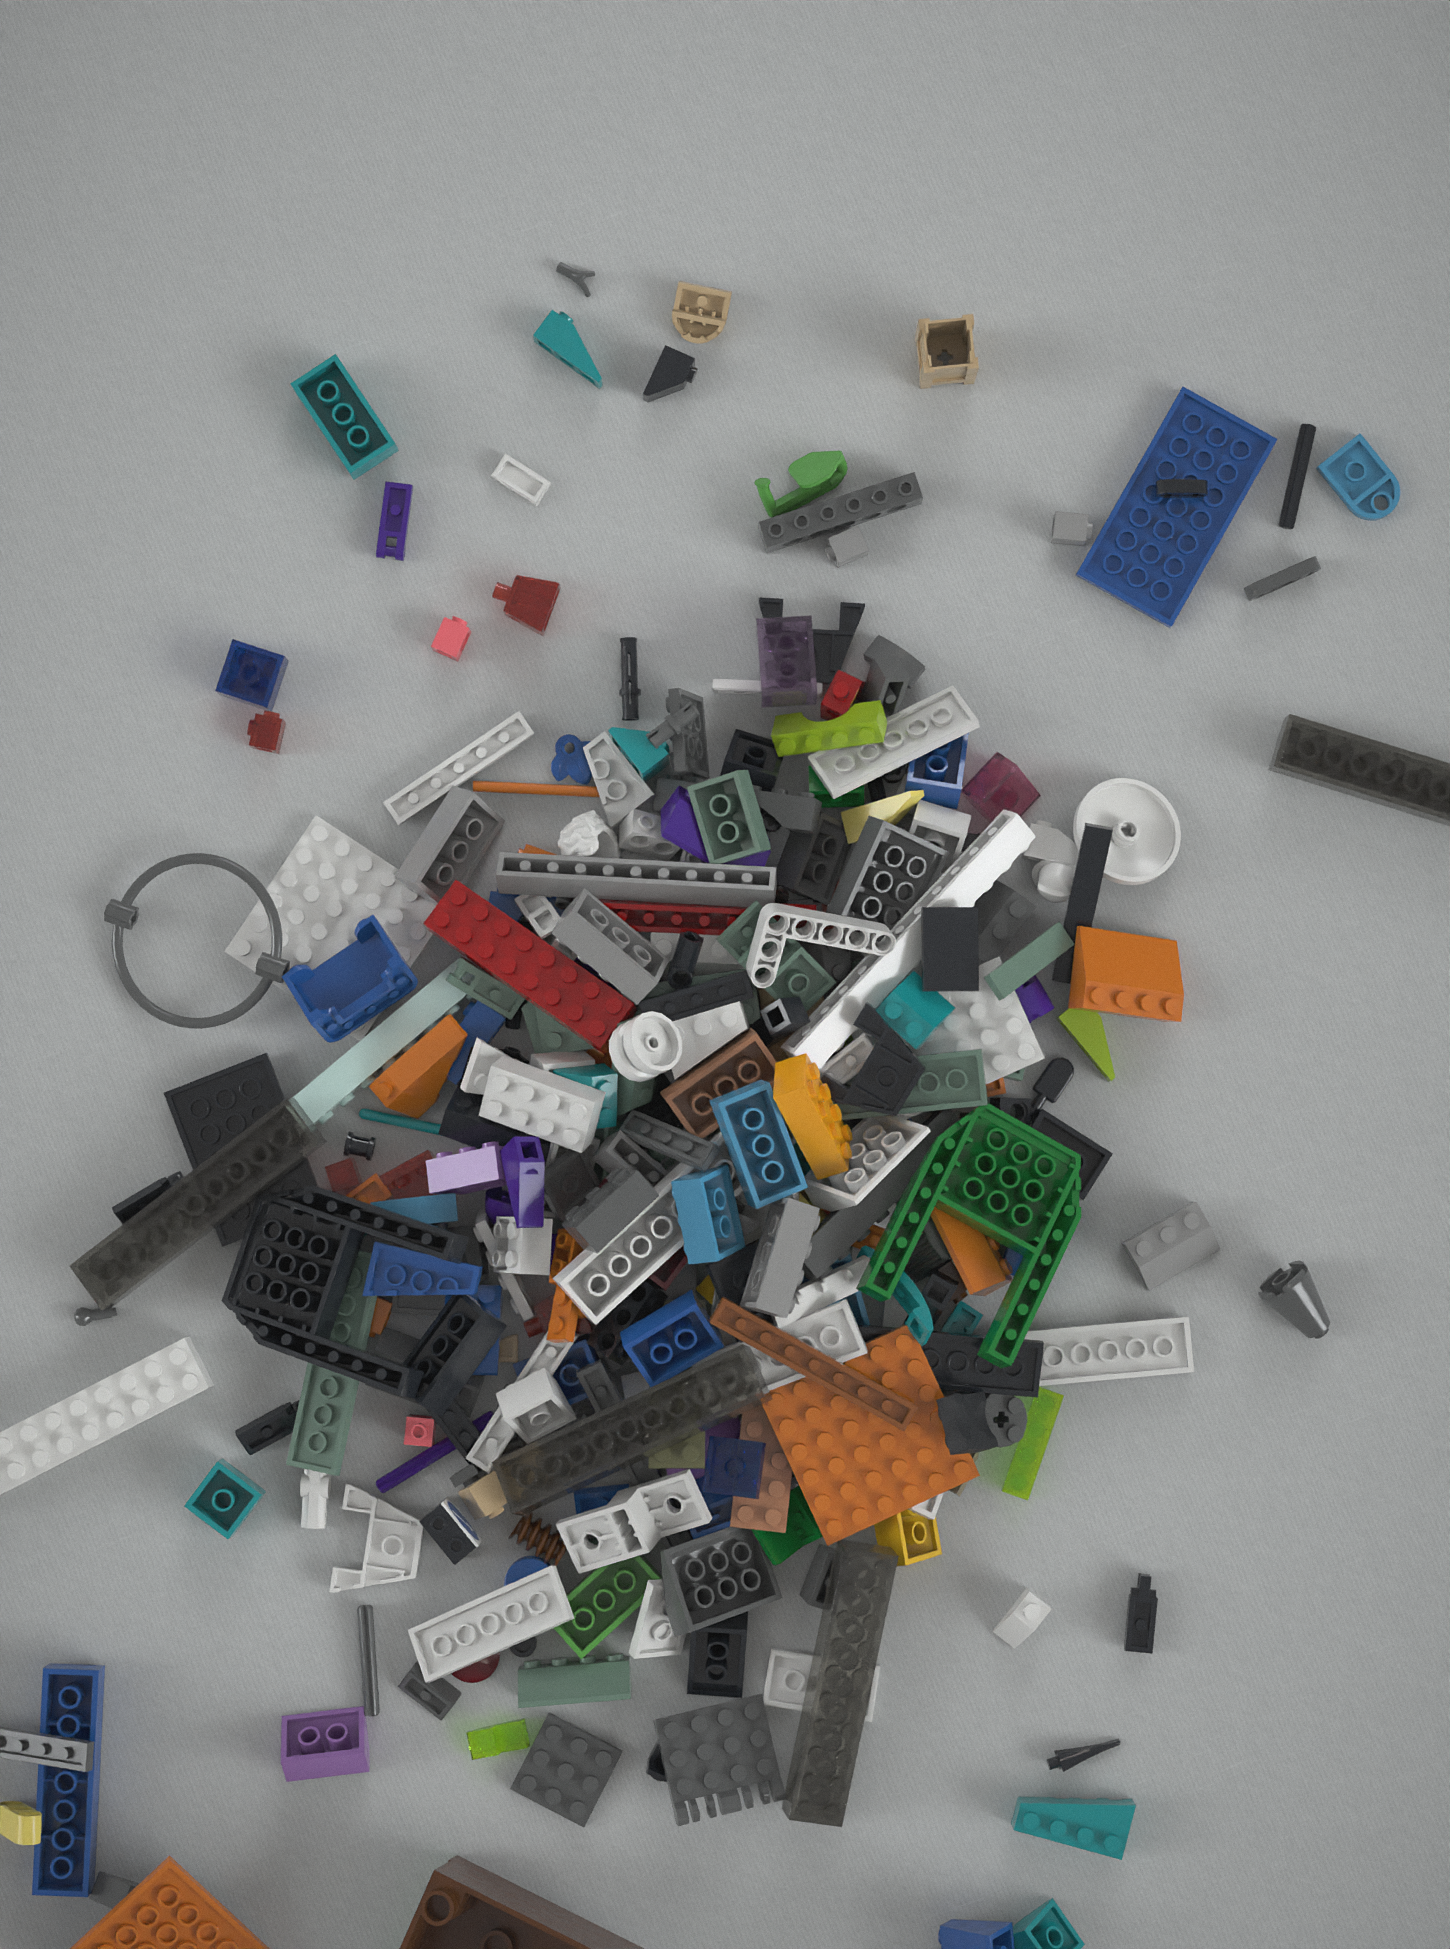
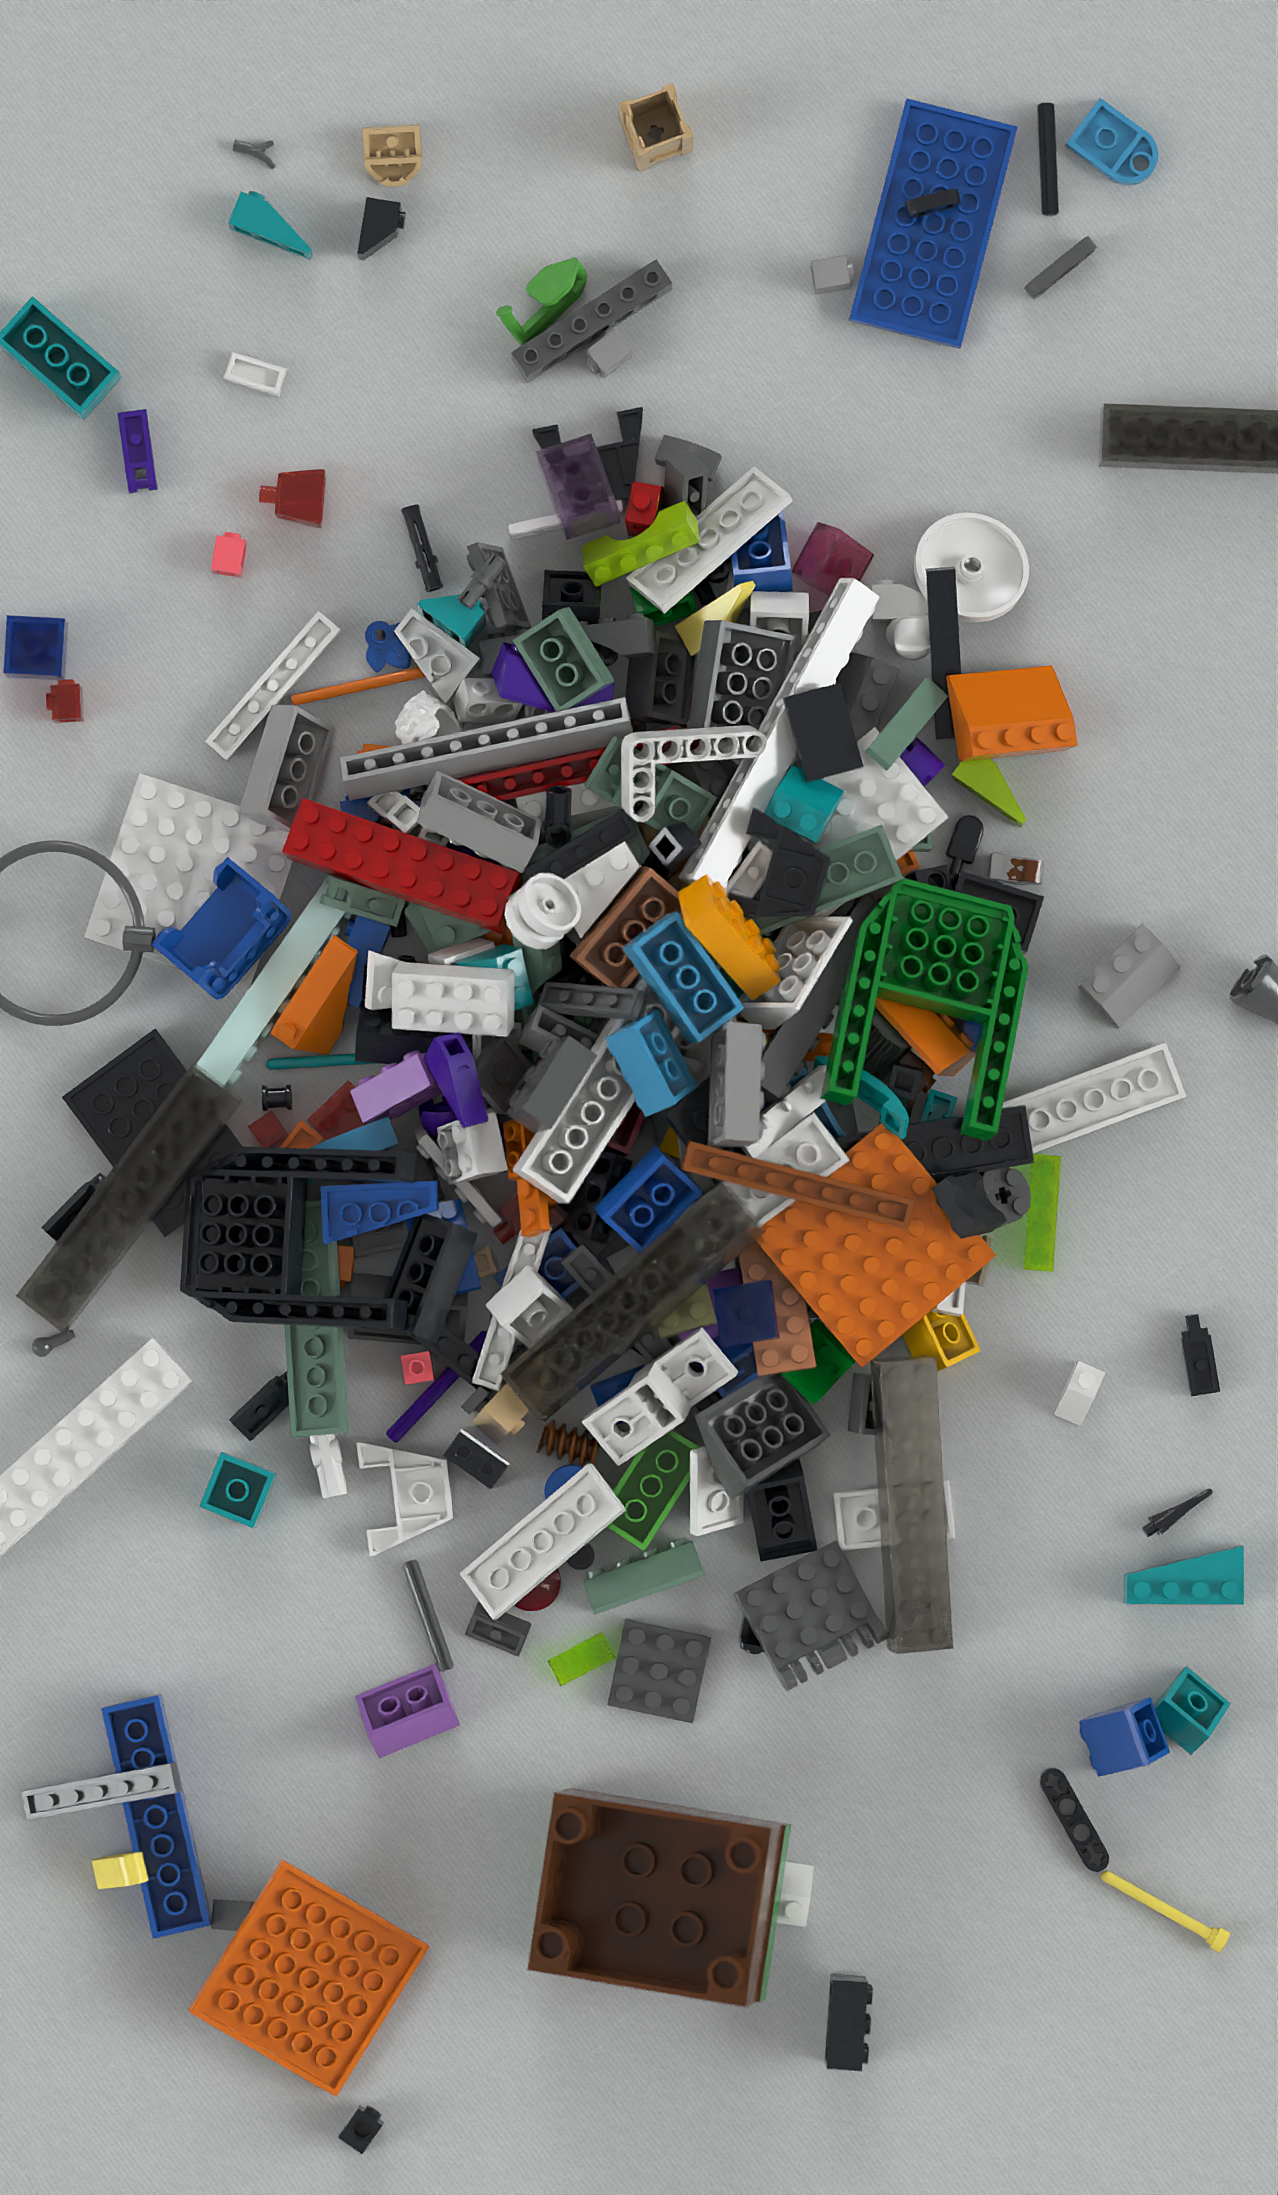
camera: 20 degrees left, 0 degrees up
(1092, 1119) = (1015, 869): none -> leg

